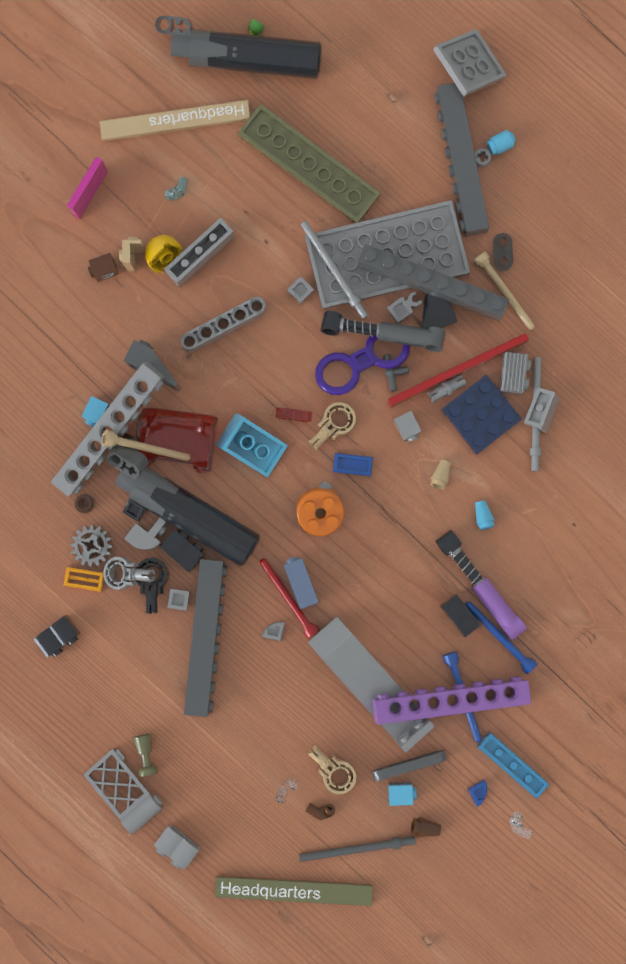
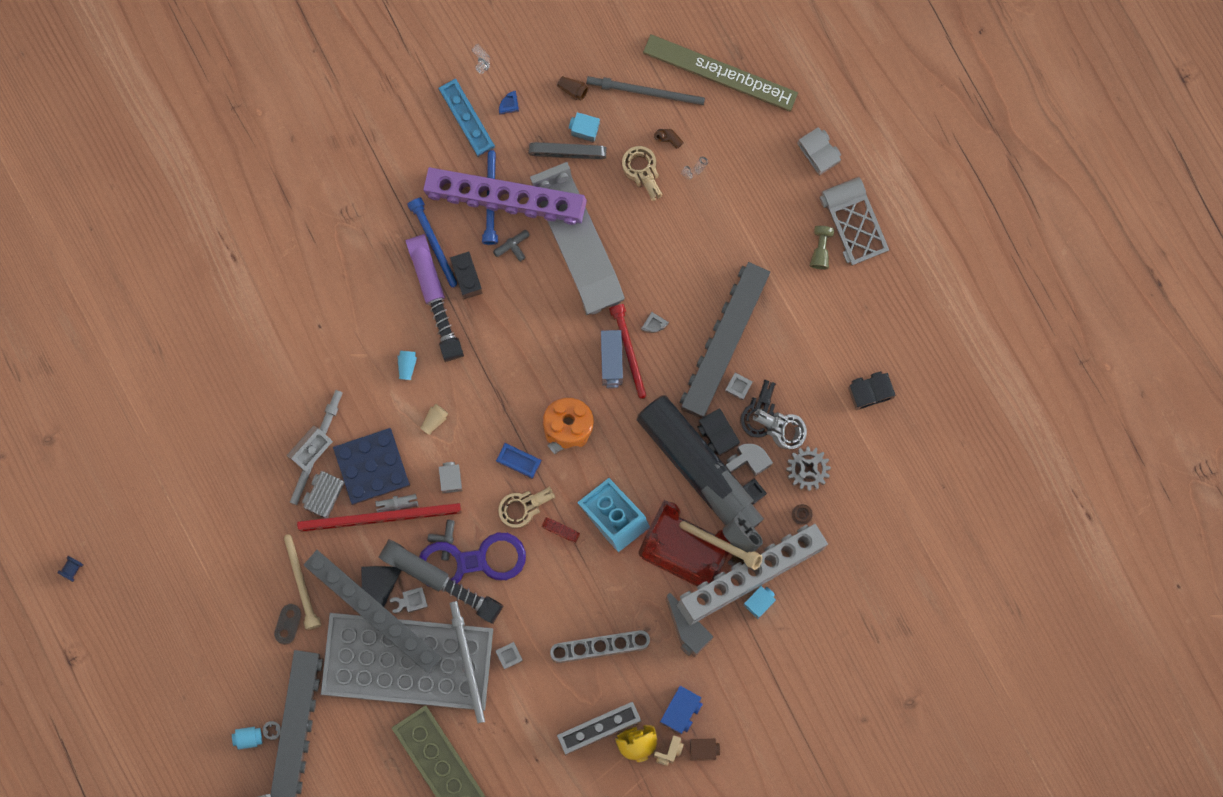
camera: 170 degrees left, 5 degrees down
(100, 582) = (826, 439): light orange tile -> none
(134, 294) = (680, 710): none -> blue brick
(429, 660) = (511, 244): none -> dark grey piece

